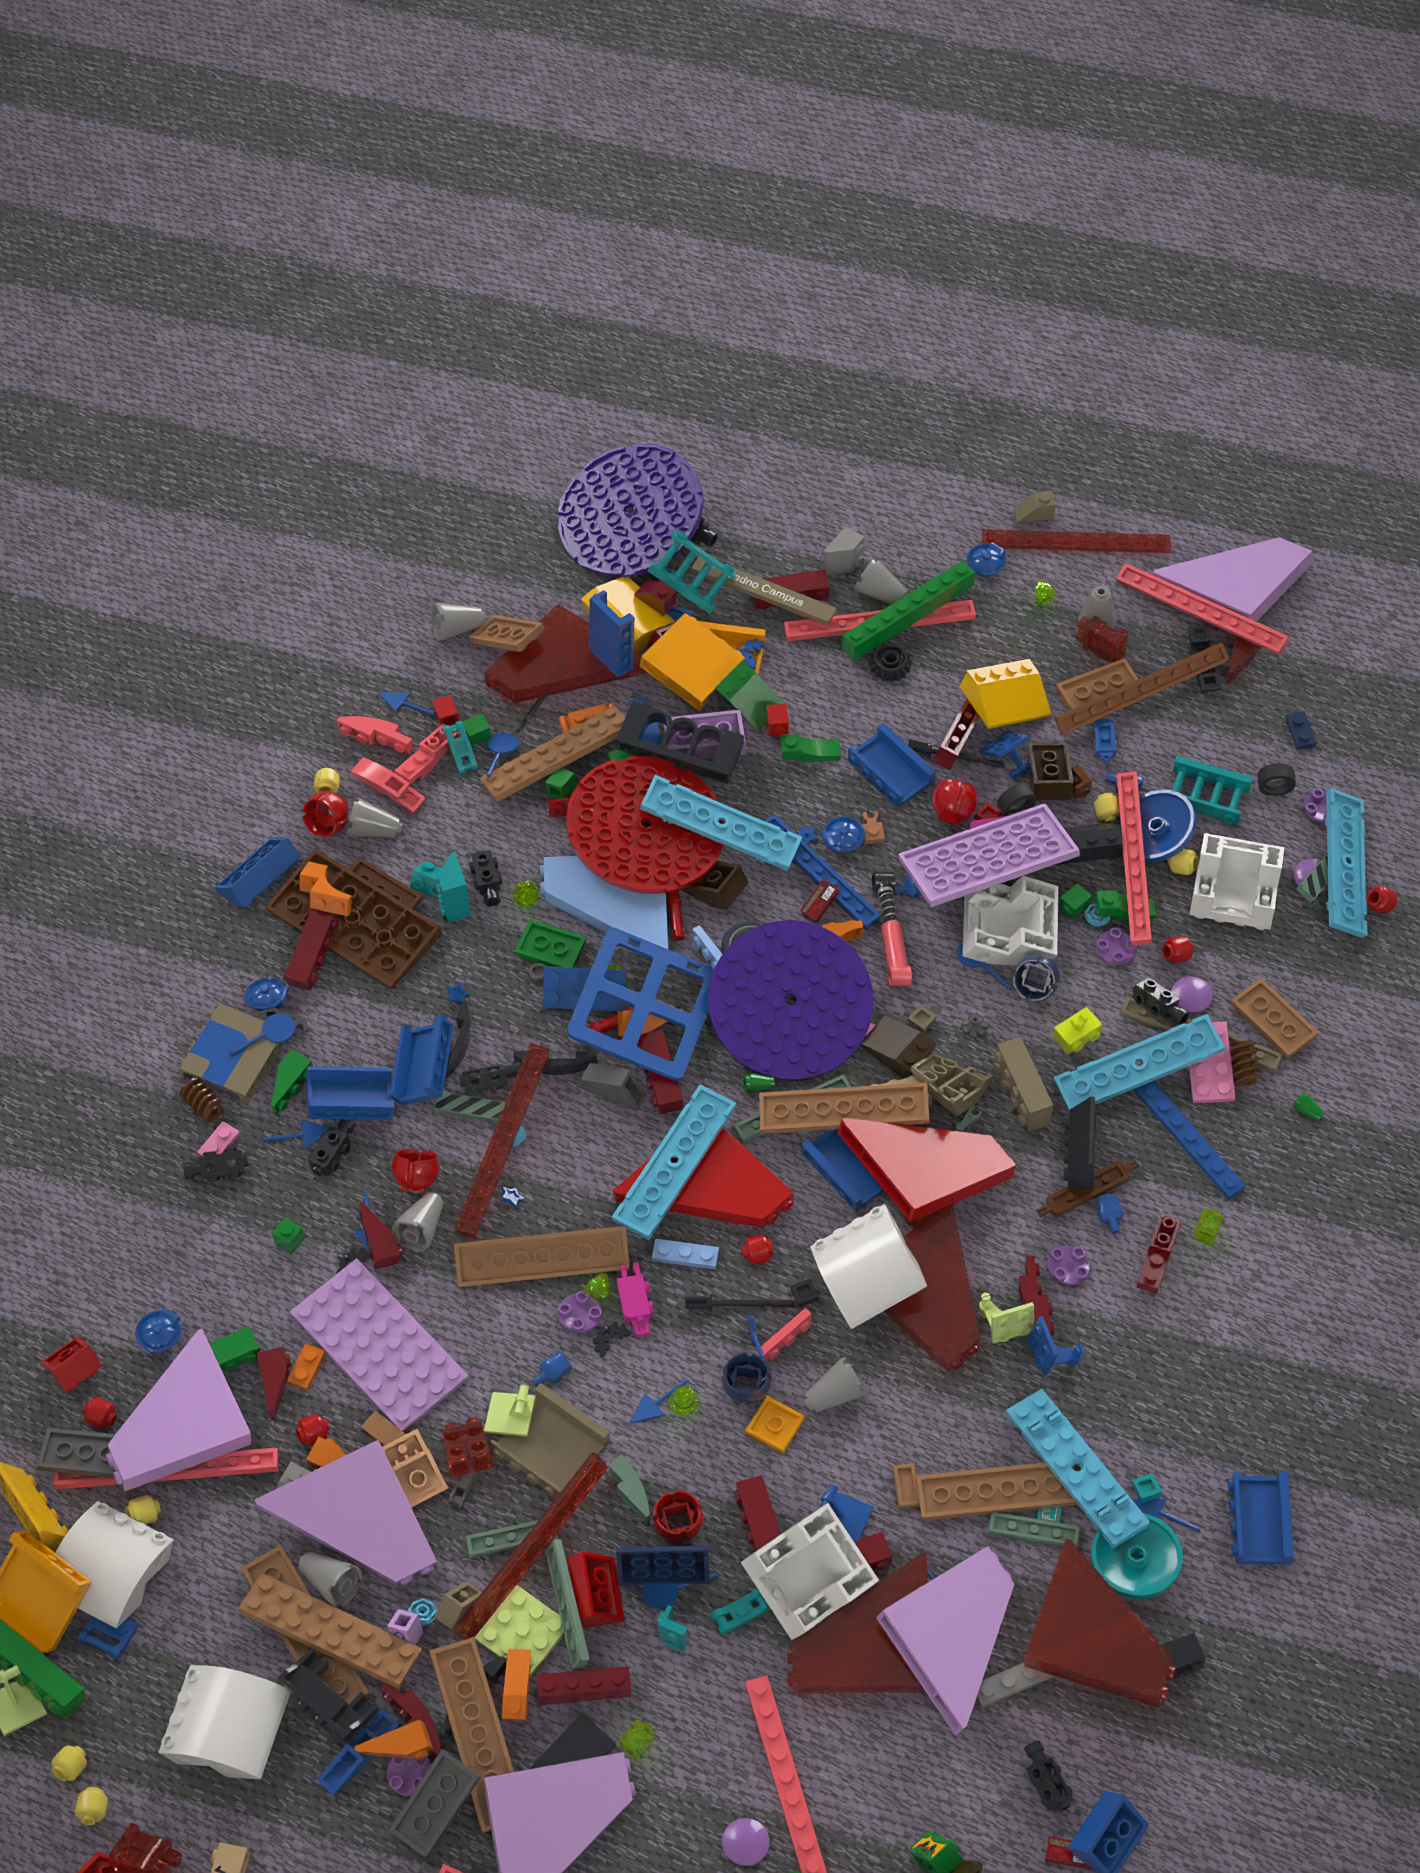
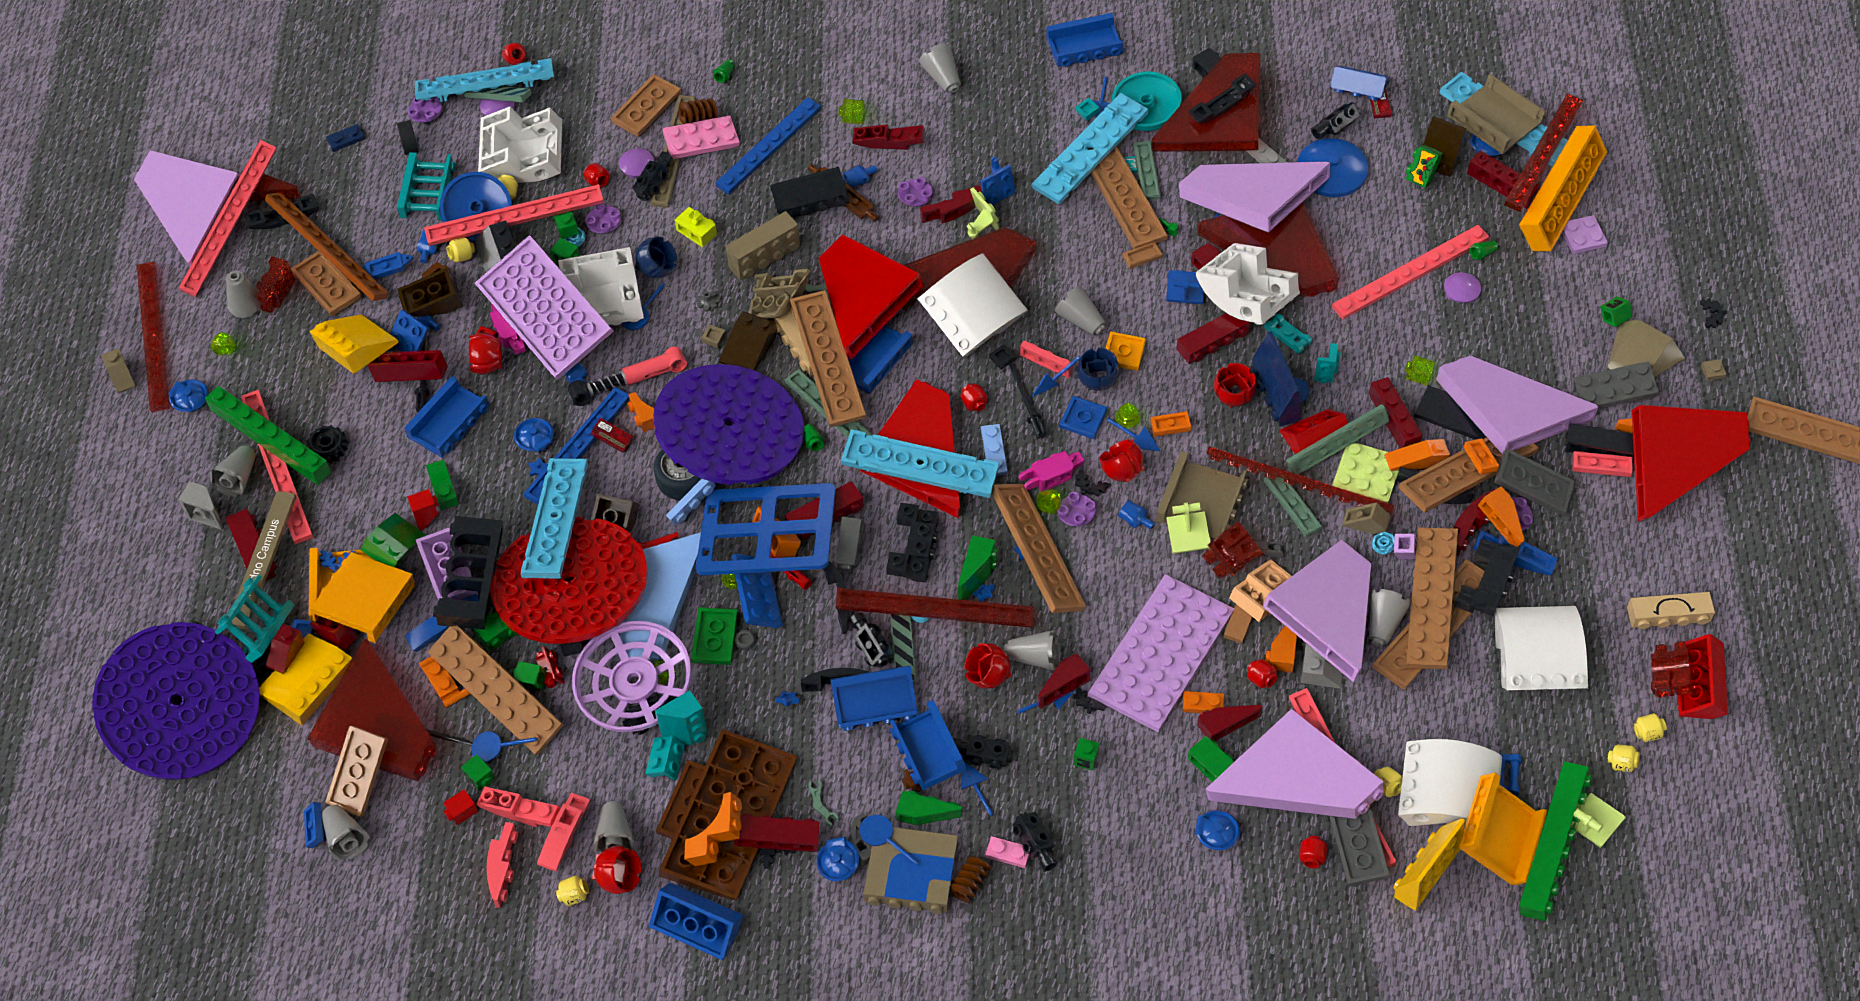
camera: 105 degrees left, 0 degrees up
(72, 1364) = (1275, 894): red slope -> none
(333, 996) = (817, 805): none -> sand green piece
(396, 699) = (451, 864): blue piece -> none
(460, 747) = (505, 775): teal plate -> none
(481, 1746) = (1481, 456): none -> orange plate
(484, 604) = (313, 825): none -> blue plate
(516, 850) = (628, 668): none -> lavender dish
(539, 1189) = (977, 565): none -> green slope
(592, 1150) = (919, 548): none -> black bracket
(611, 636) = (361, 651): blue panel -> none
(616, 1366) = (1122, 461): none -> red piece
(630, 1487) = (1219, 428): sand green slope -> none
(657, 1440) = (1170, 423): none -> orange plate
(698, 1355) = (1083, 417): none -> blue tile
(873, 829) = (518, 416): nougat plate -> none
(934, 1531) = (1172, 228): none -> green hand
(982, 1758) = (1346, 162): none -> blue dish
(1016, 799) = (471, 310): black tyre -> none
(1091, 1625) = (1223, 102): none -> black slope
(1160, 1057) = (733, 187): medium azure piece -> none
(1247, 1337) = (941, 67): none -> light grey cone

